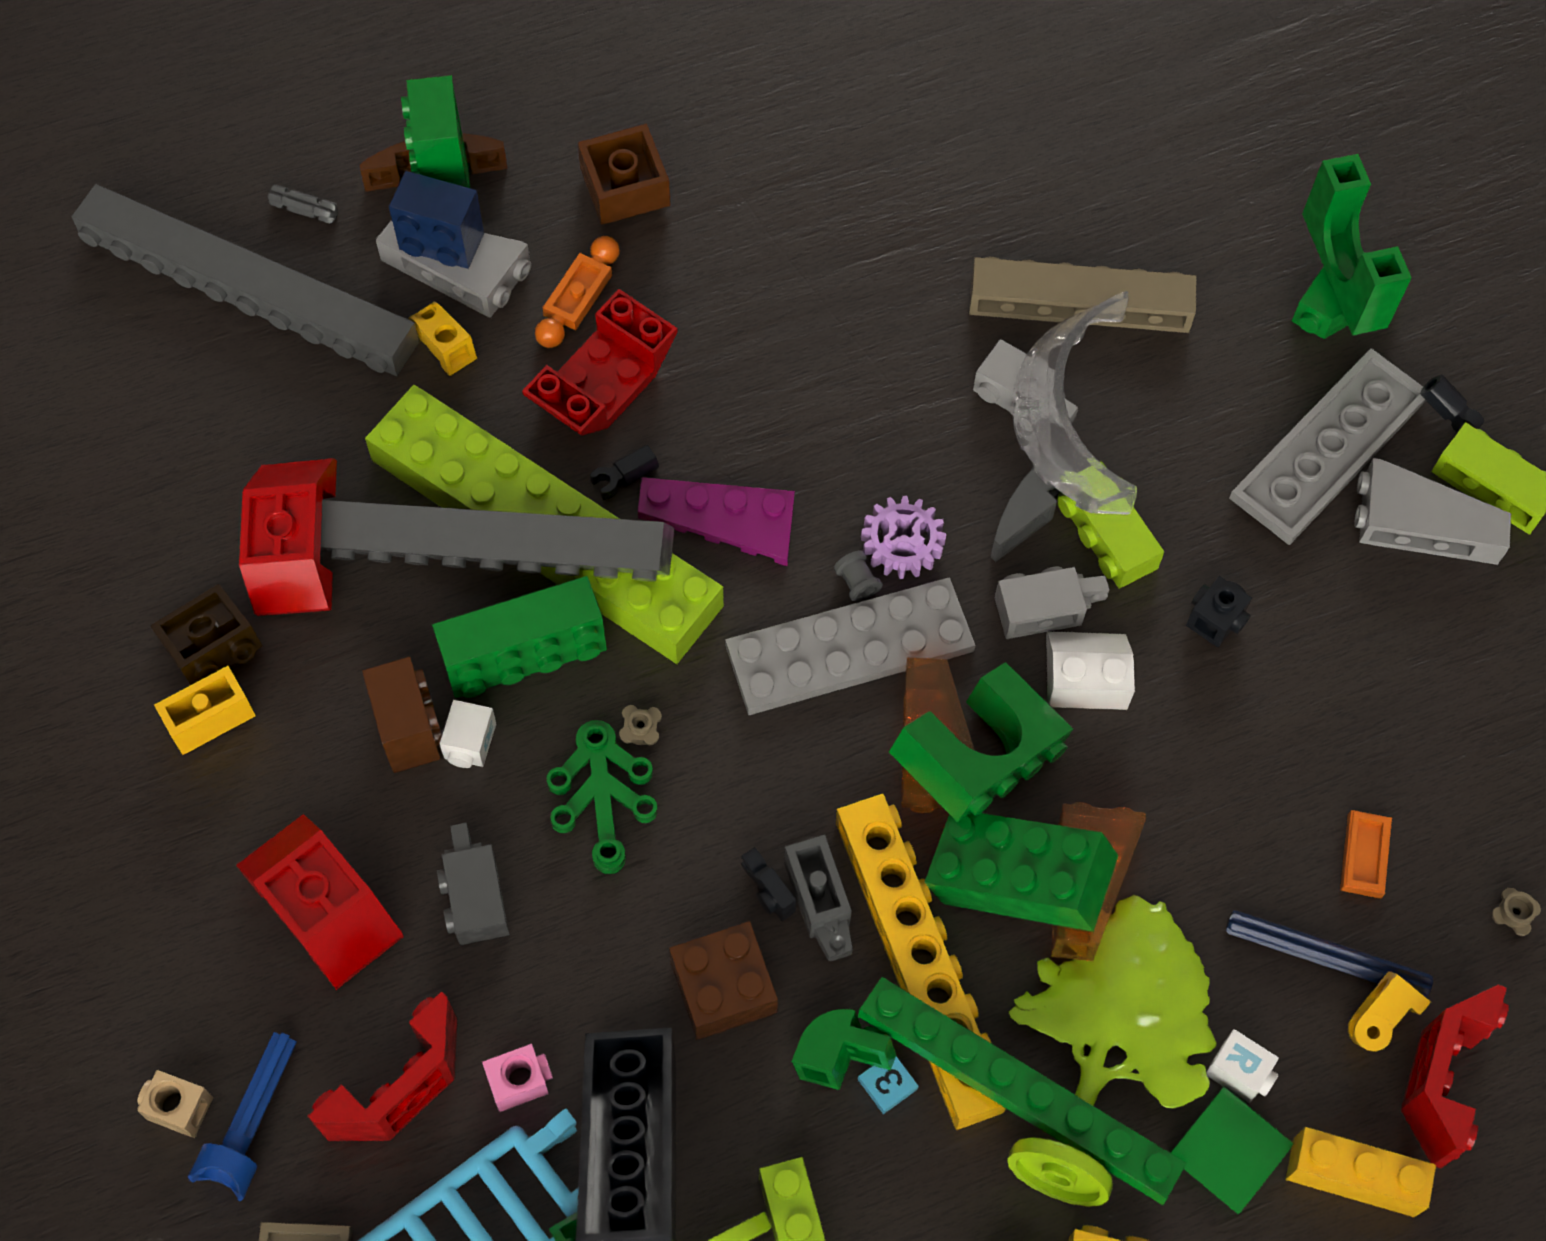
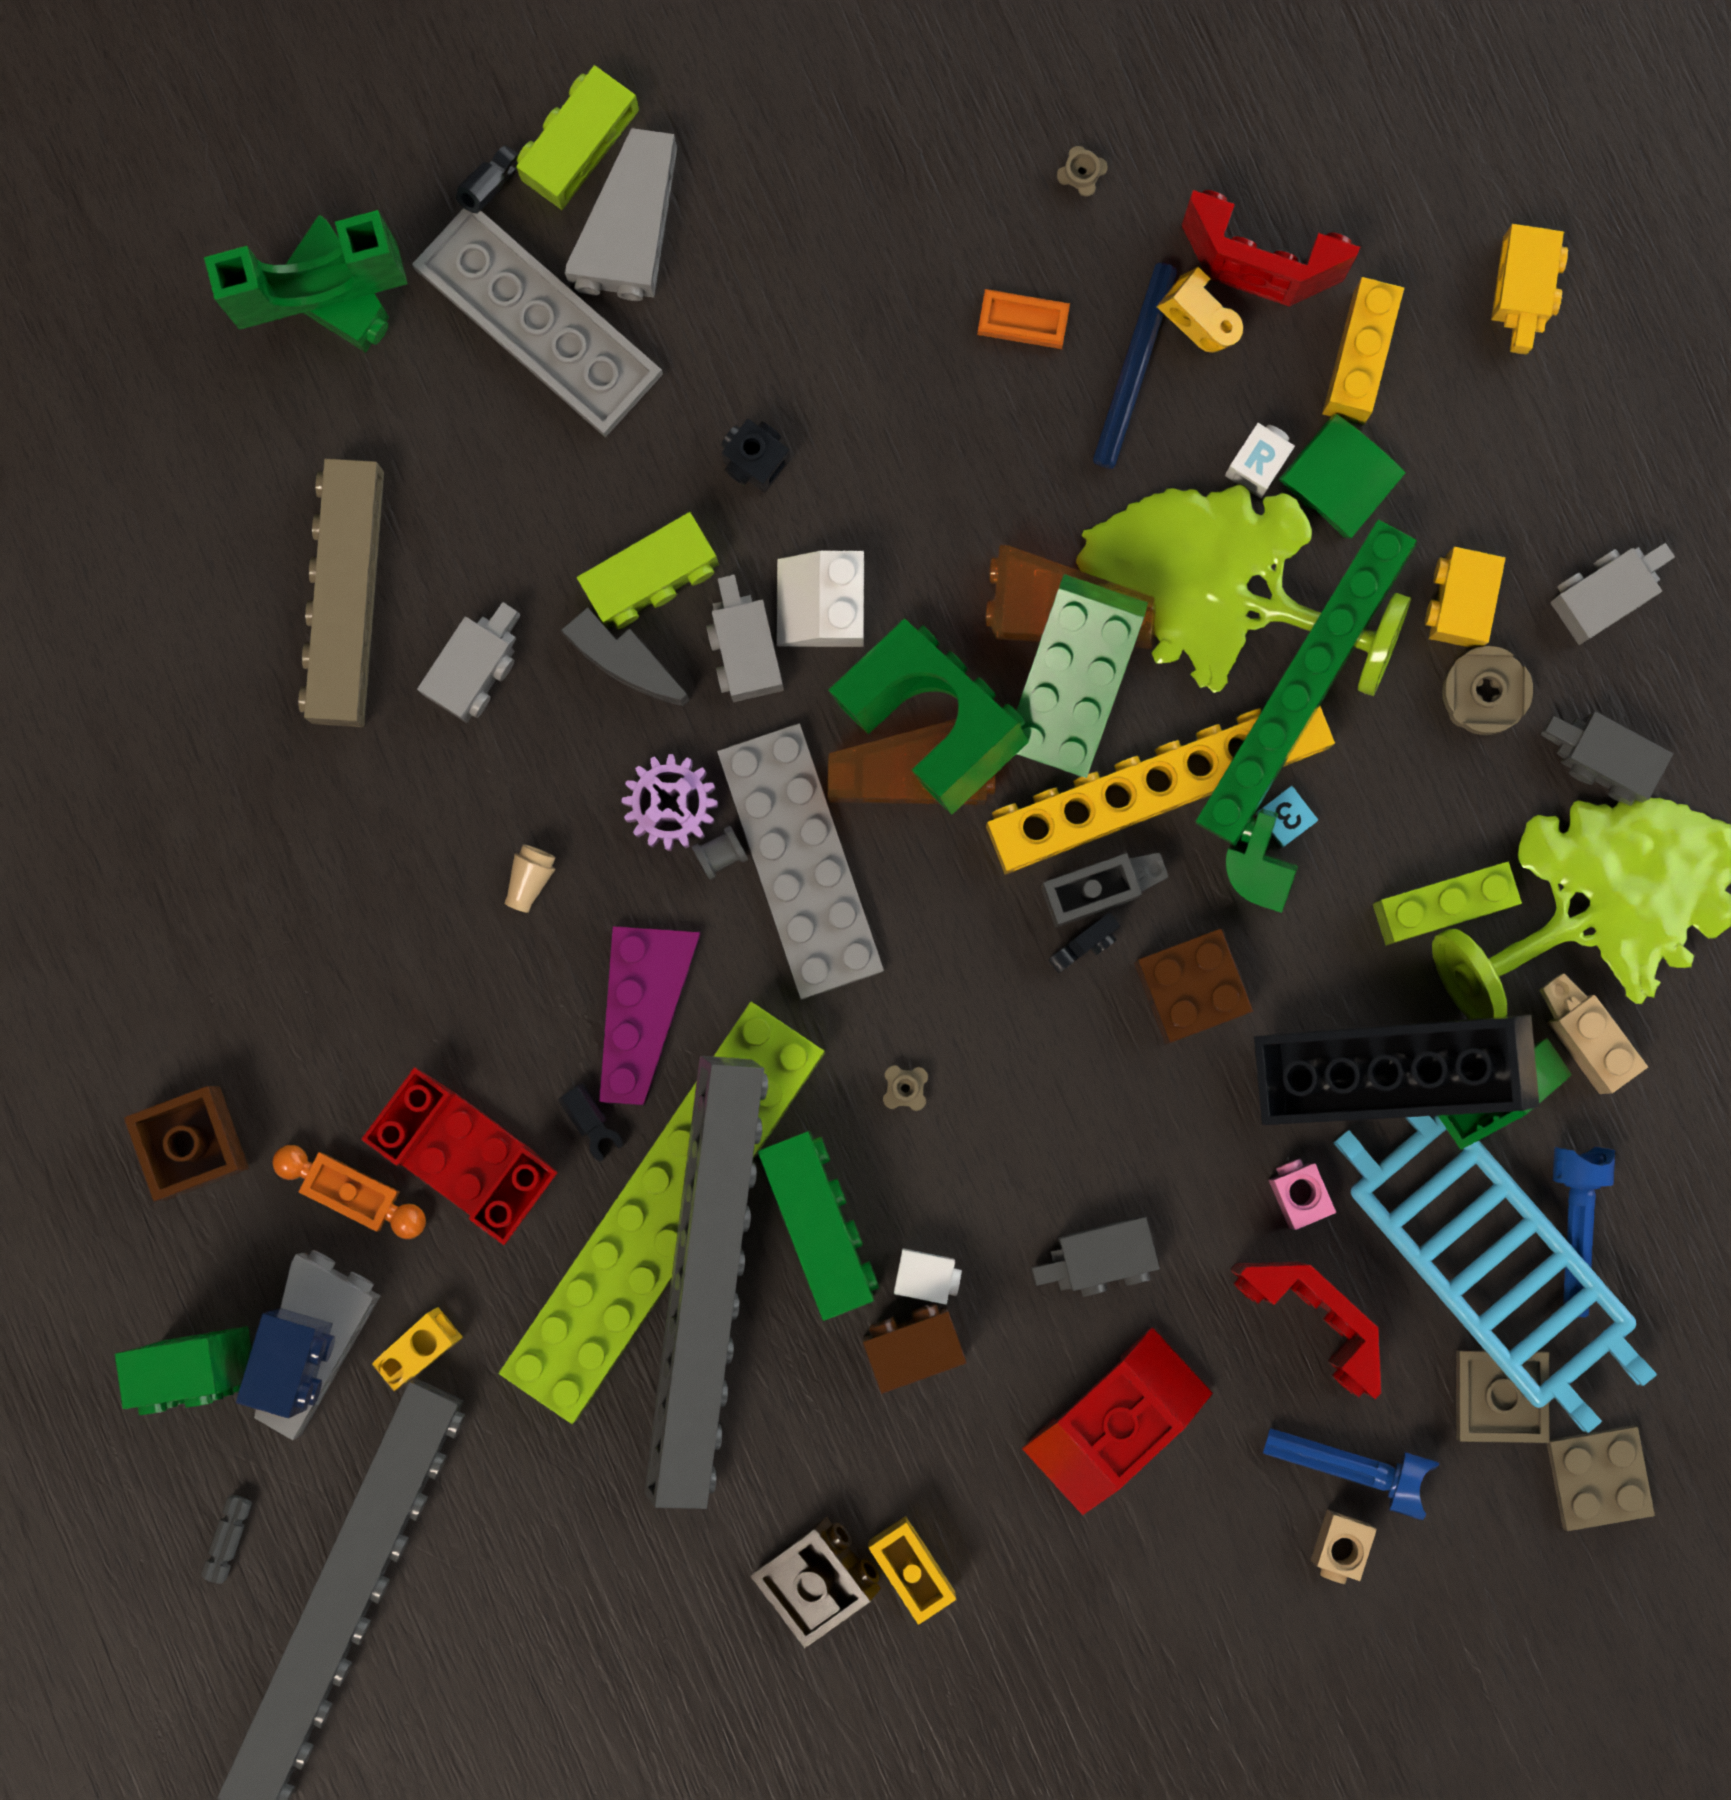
camera: 85 degrees left, 20 degrees up
(284, 537) = (693, 1503): red slope -> none
(384, 167) = (176, 1440): reddish brown slope -> none
(601, 788) = (978, 1127): green plant -> none
(839, 427) = (528, 877): none -> tan cone
(1045, 426) = (518, 643): clear windscreen -> none

